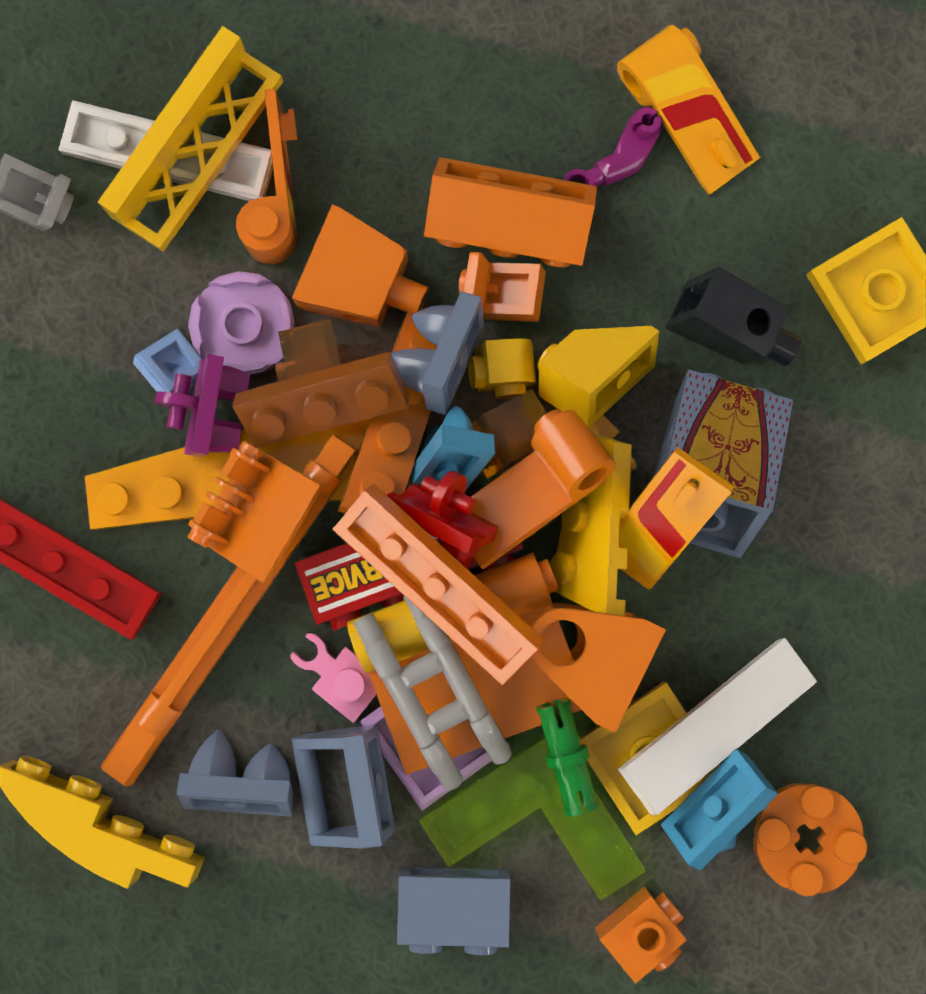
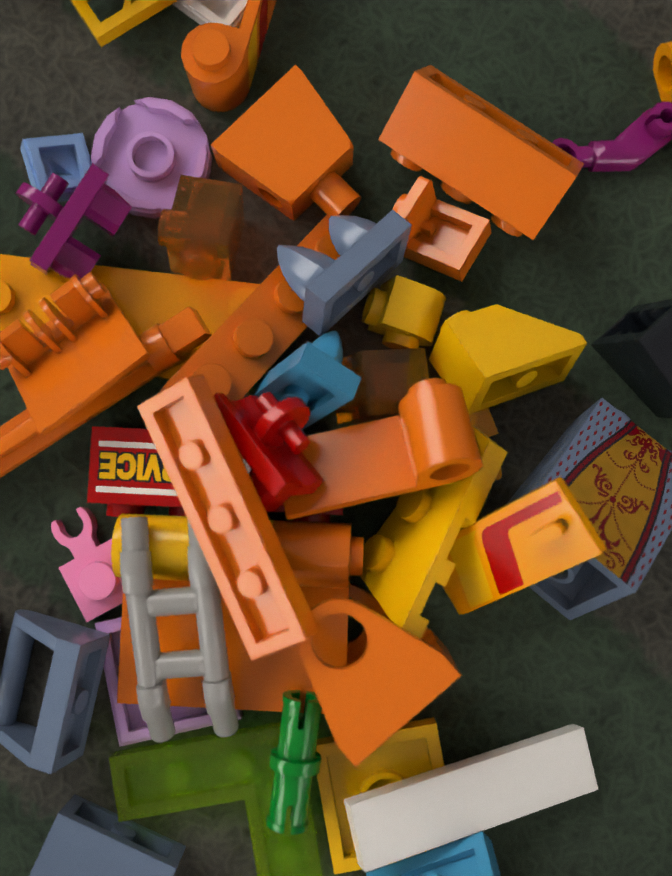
camera: 20 degrees right, 0 degrees up
(322, 400) = (193, 263): dark orange plate -> none

